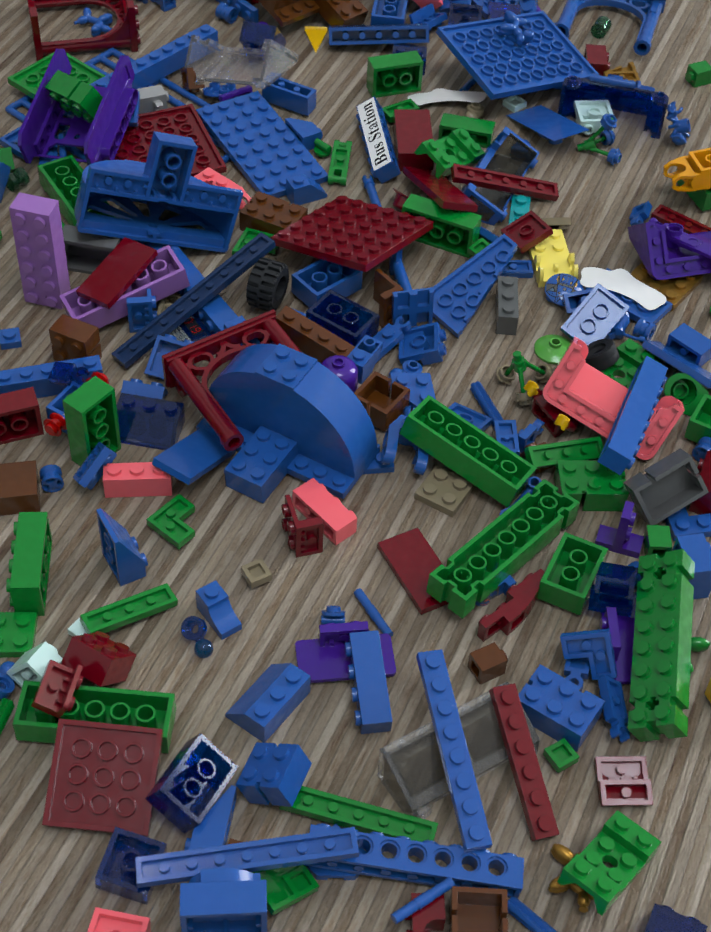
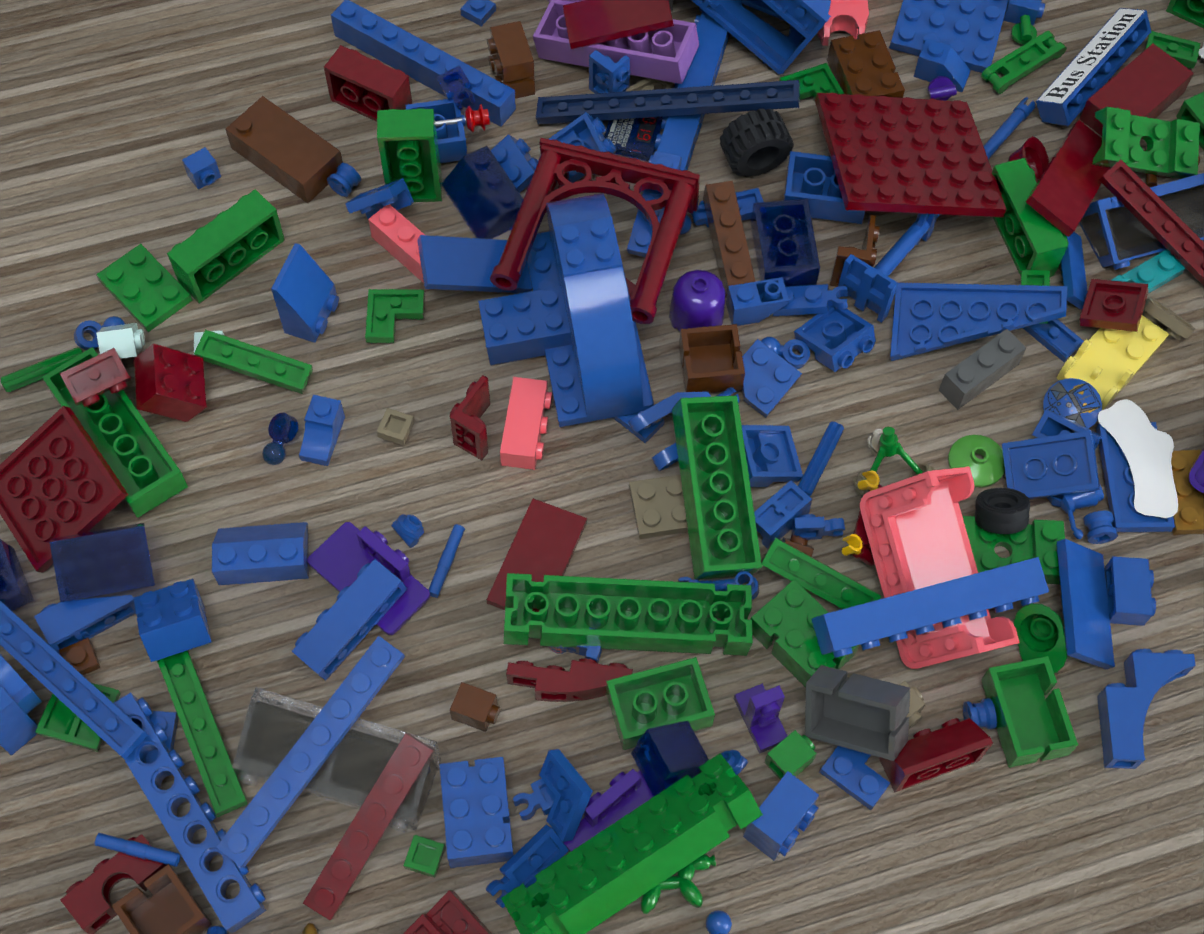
camera: 50 degrees right, 15 degrees up
(319, 199) = (941, 88): none -> dark purple plate

